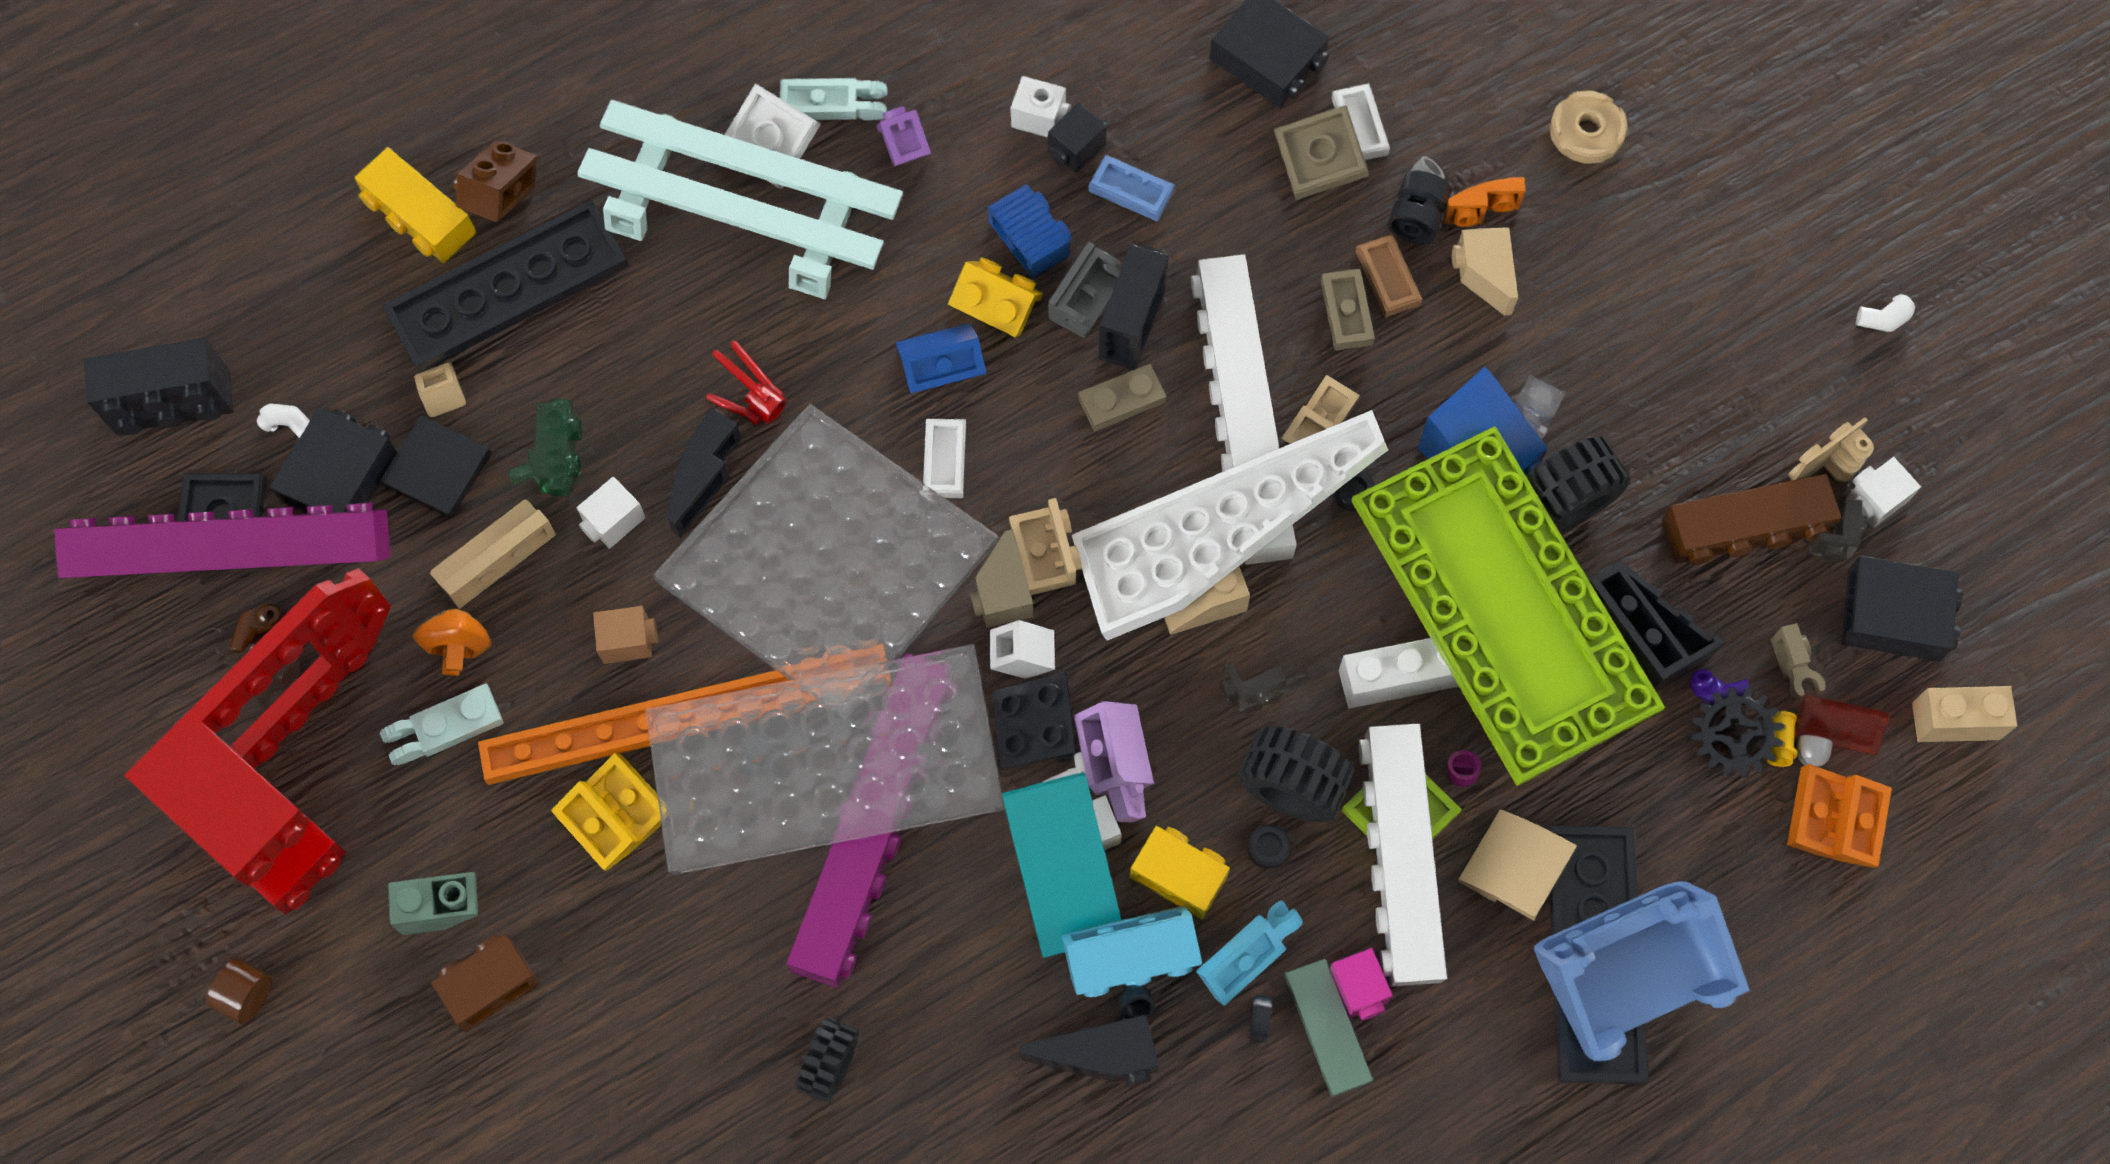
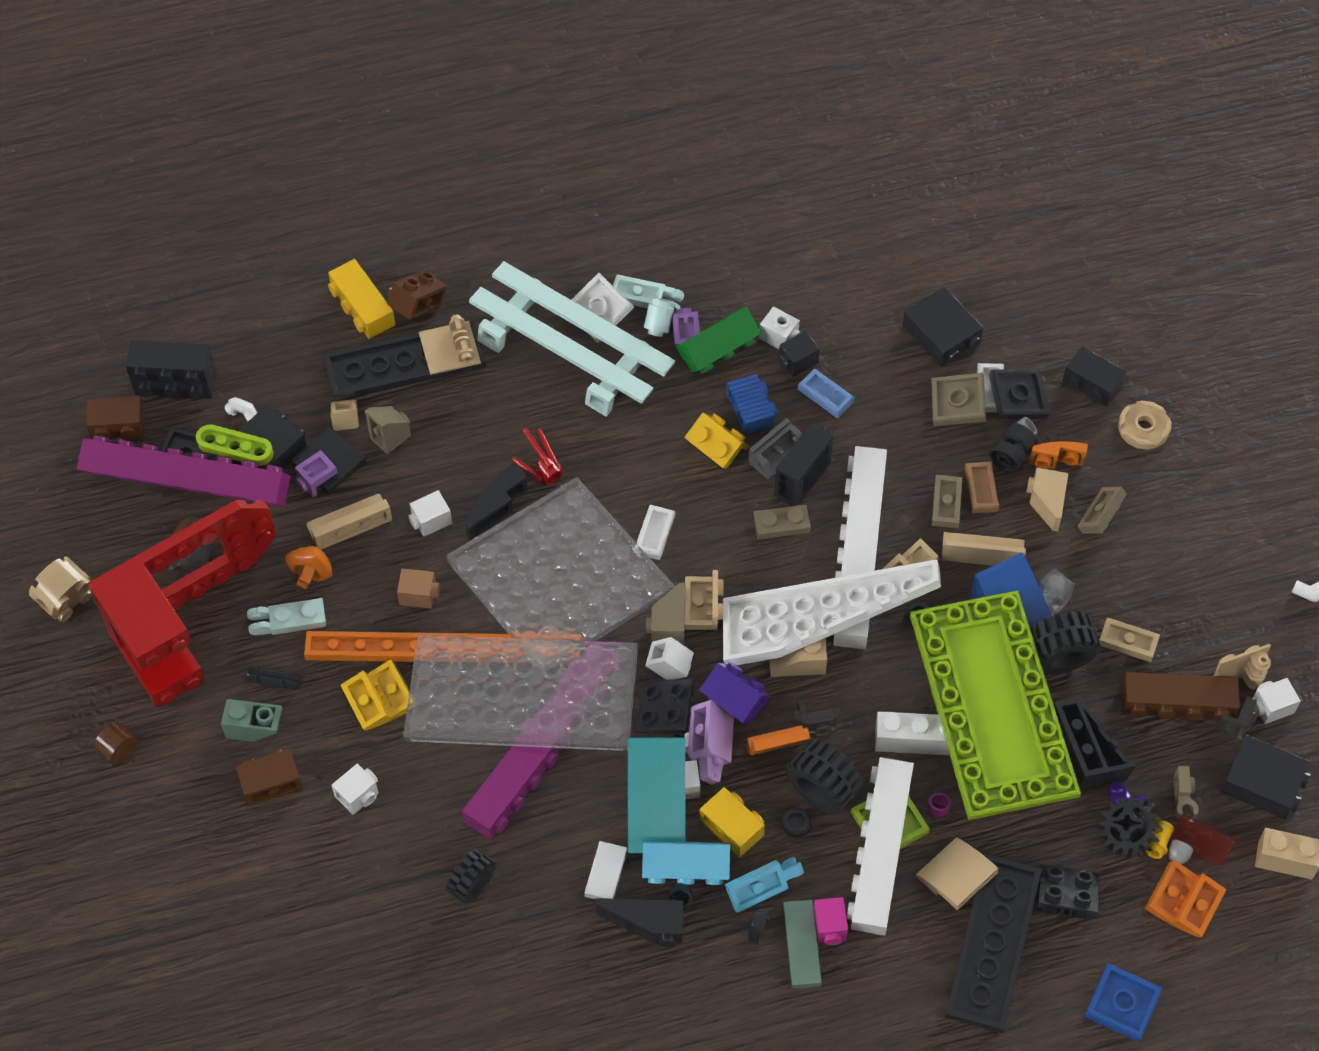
camera: 15 degrees right, 10 degrees down
(87, 771) = (61, 588): none -> tan brick
(95, 481) = (115, 417): none -> reddish brown brick
(274, 477) = (226, 439): none -> lime plate
(420, 493) = (314, 472): none -> medium lavender bracket
(448, 824) = (273, 678): none -> black axle
(510, 395) = (387, 427): none -> dark tan slope
(554, 456) = (405, 470): clear green brick -> none
(567, 249) = (450, 346): none -> tan hinge
(620, 966) = (356, 788): none -> white brick
(860, 130) = (659, 316): none -> light aqua brick
(941, 357) = (670, 469): blue panel -> none
(958, 146) = (719, 341): none -> green brick
(1018, 994) = (606, 871): none -> white tile
(1133, 679) = (734, 692): none -> dark purple brick
(1212, 736) = (777, 740): none -> orange slope
(1403, 123) = (1019, 394): none -> black tile
(1417, 368) = (979, 548): none -> tan panel
(1501, 72) = (1094, 376): none -> black brick
(1567, 269) = (1102, 510): none -> dark tan plate
(1641, 964) = (1018, 953): medium blue windscreen -> none
(1658, 452) = (1129, 639): none -> tan plate
(1678, 848) = (1068, 890): none -> black hinge
(1797, 992) = (1123, 1002): none -> blue tile

